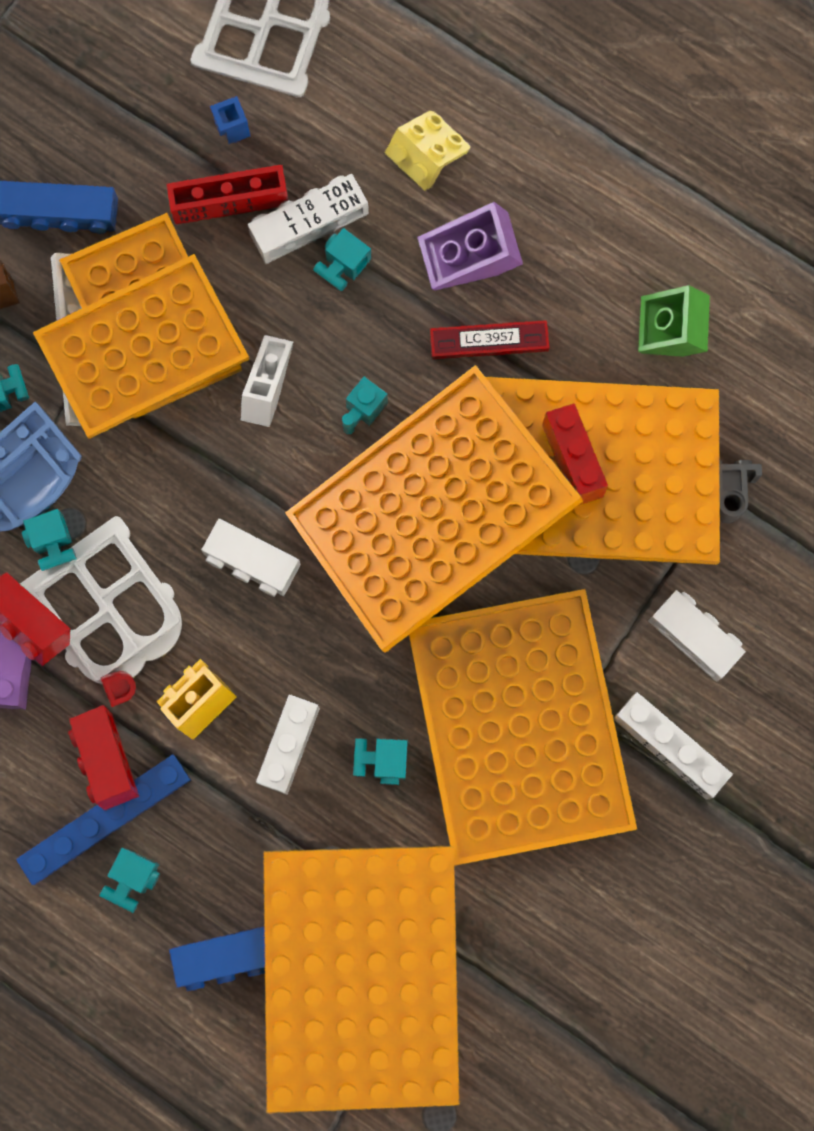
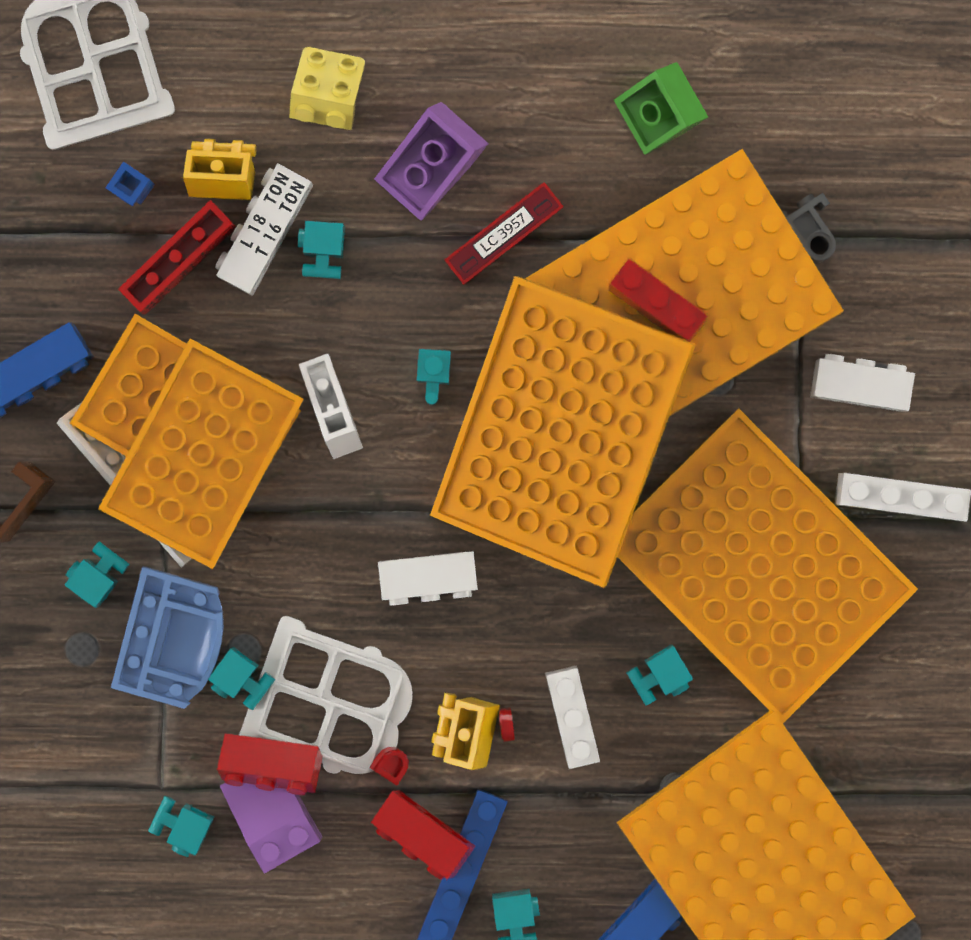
camera: 30 degrees left, 10 degrees up
(231, 717) = (506, 724): none -> red tile
(304, 154) = (220, 170): none -> yellow brick

